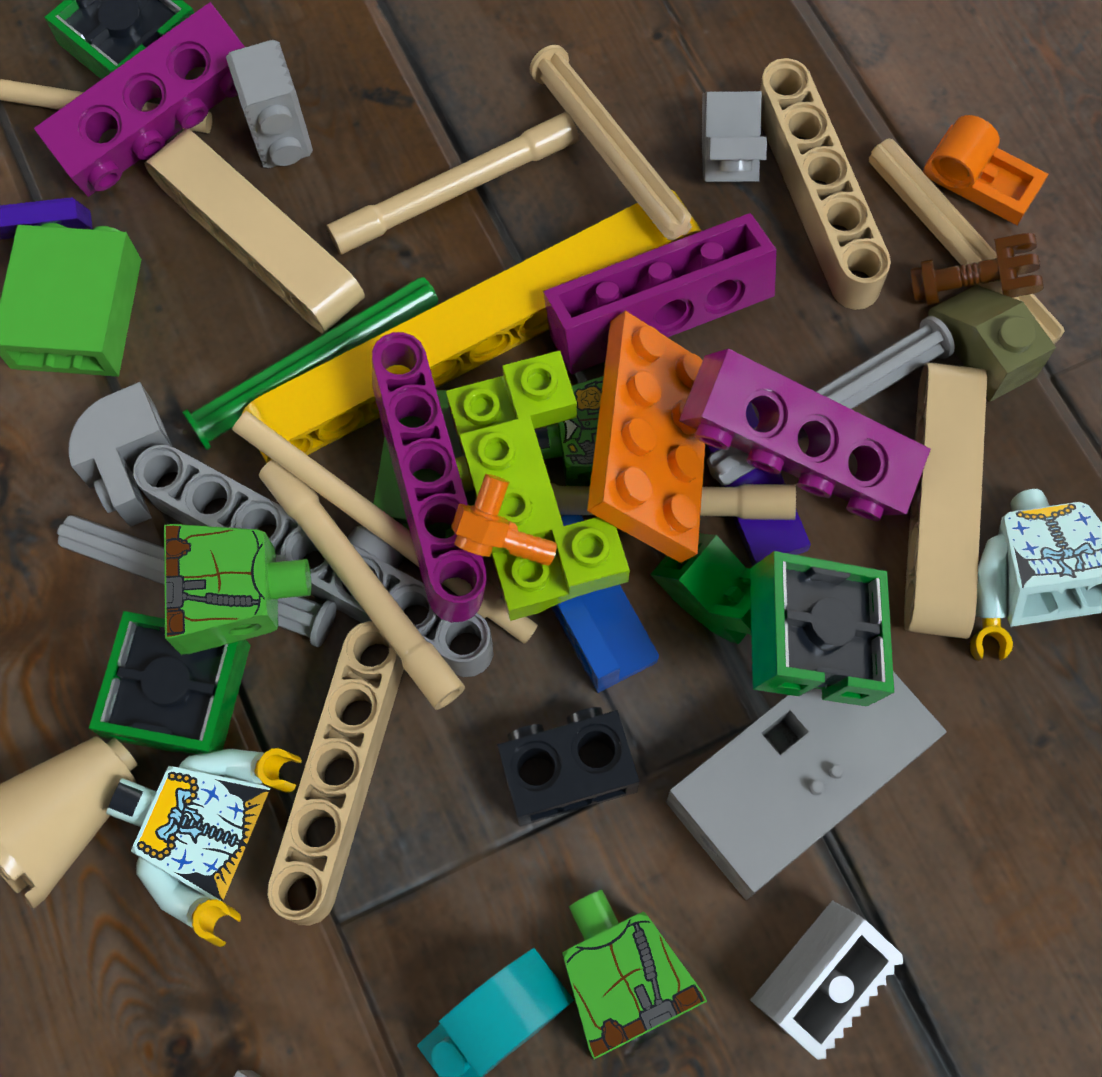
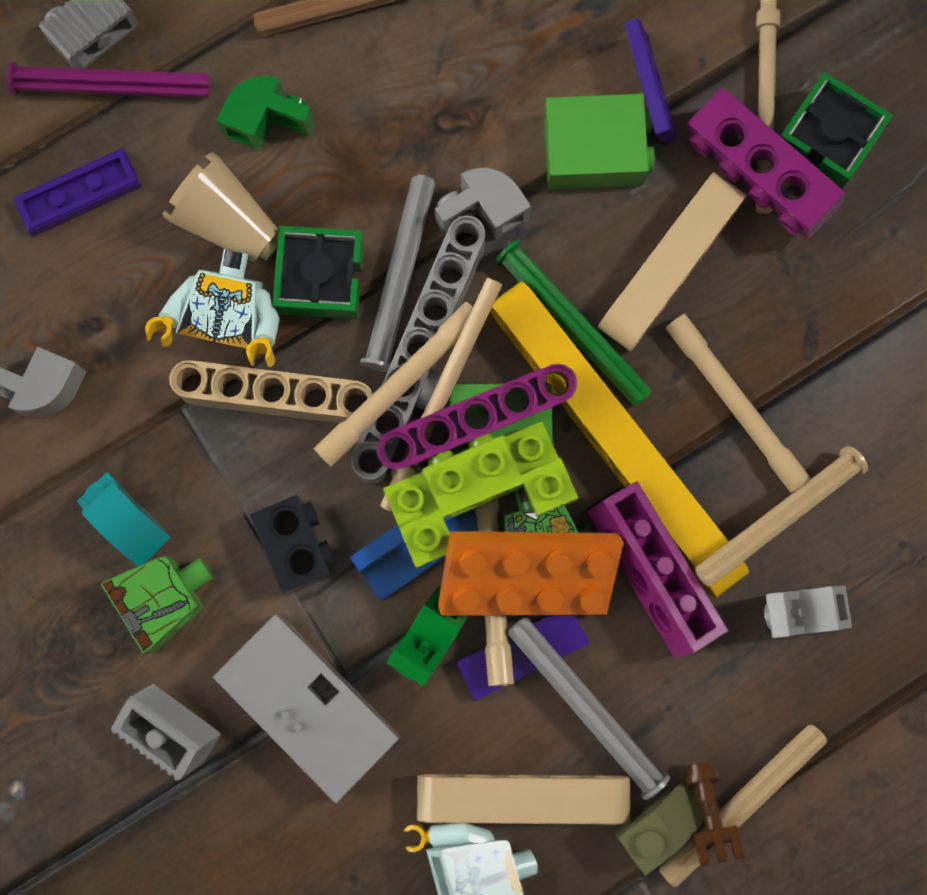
camera: 80 degrees right, 10 degrees up
(224, 585) = (380, 294): bright green torso -> none
(270, 103) = (771, 253): light grey brick -> none
(481, 527) = (428, 461): orange piece -> none
(819, 205) = (797, 685): tan beam -> none
(820, 629) = (387, 705): piece -> none
(885, 459) = (565, 624): magenta brick -> none
(979, 171) = (807, 815): orange plate -> none

